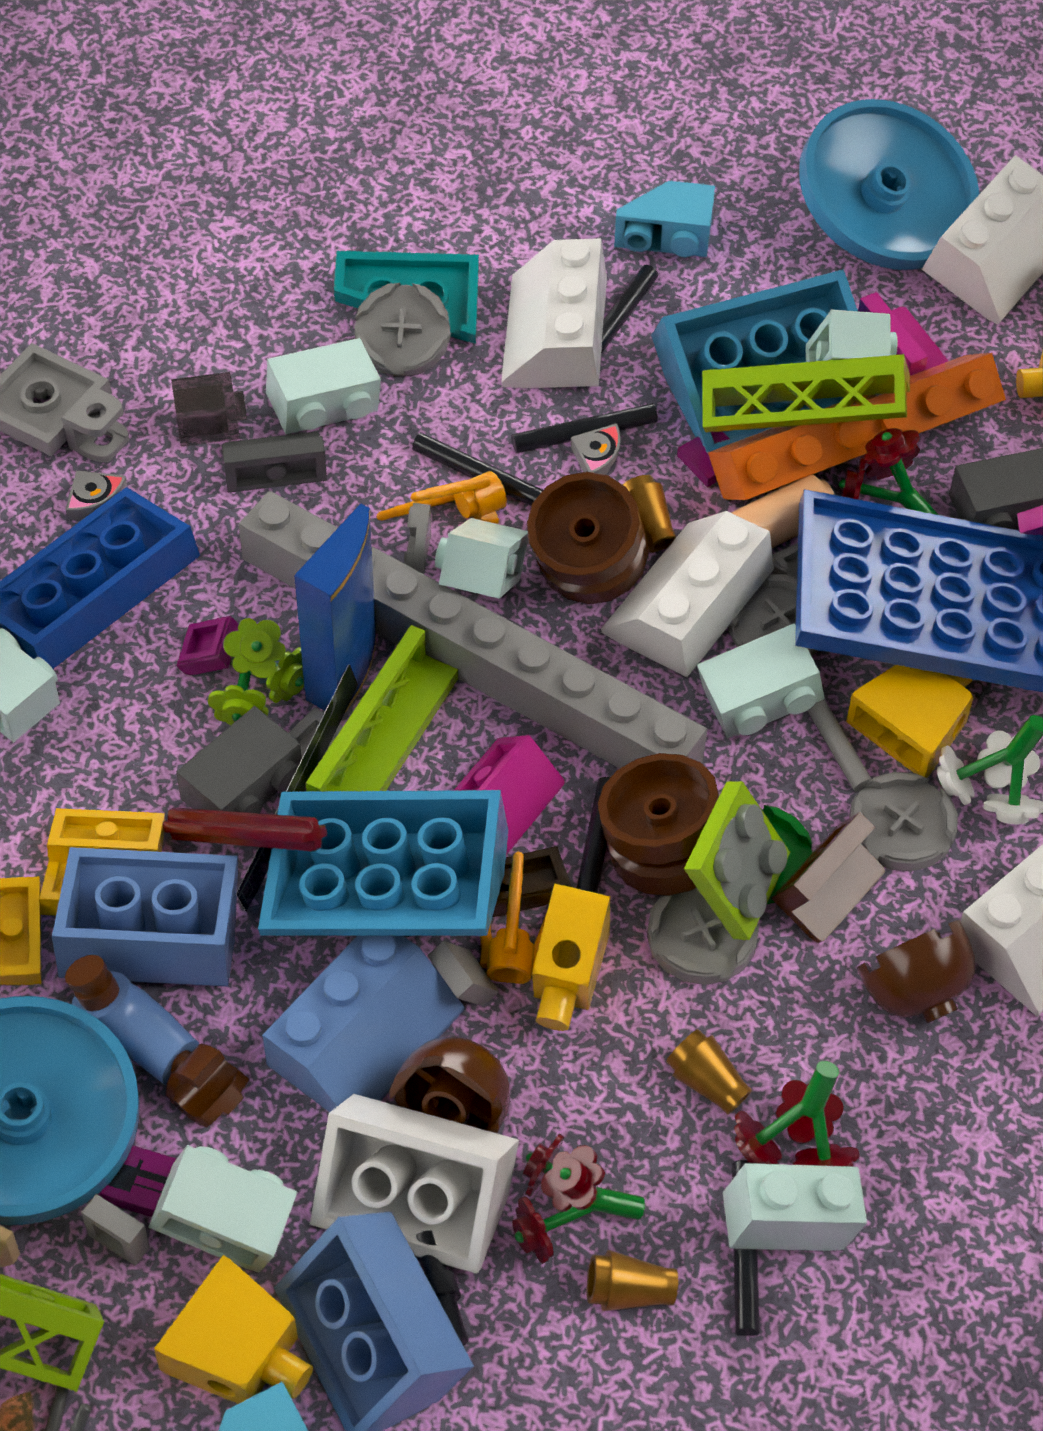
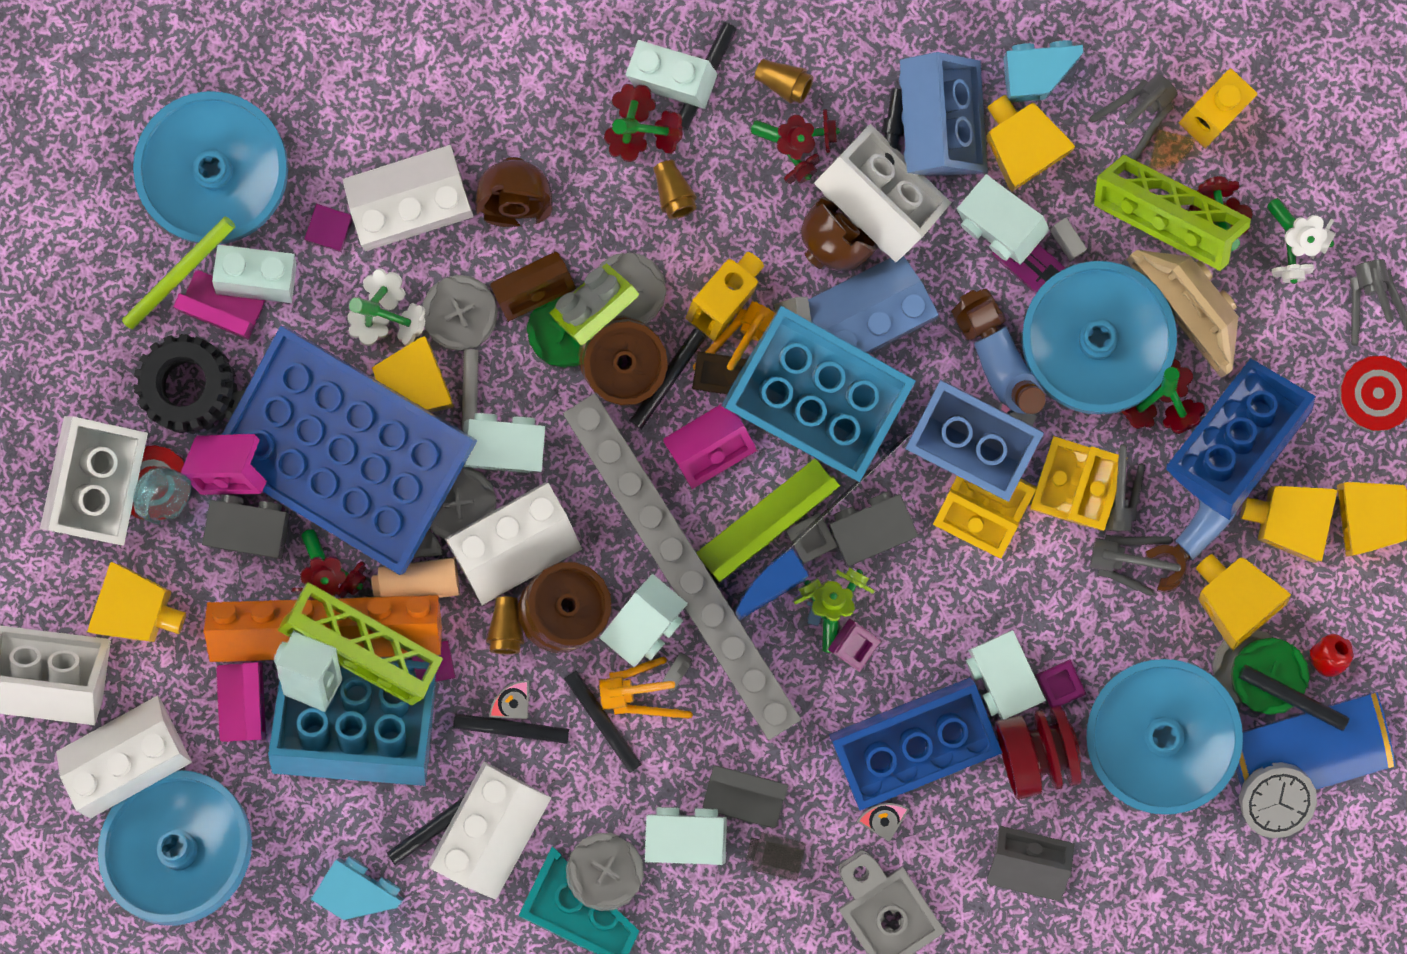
camera: 155 degrees left, 30 degrees up
(245, 829) = (894, 464): dark red axle -> none

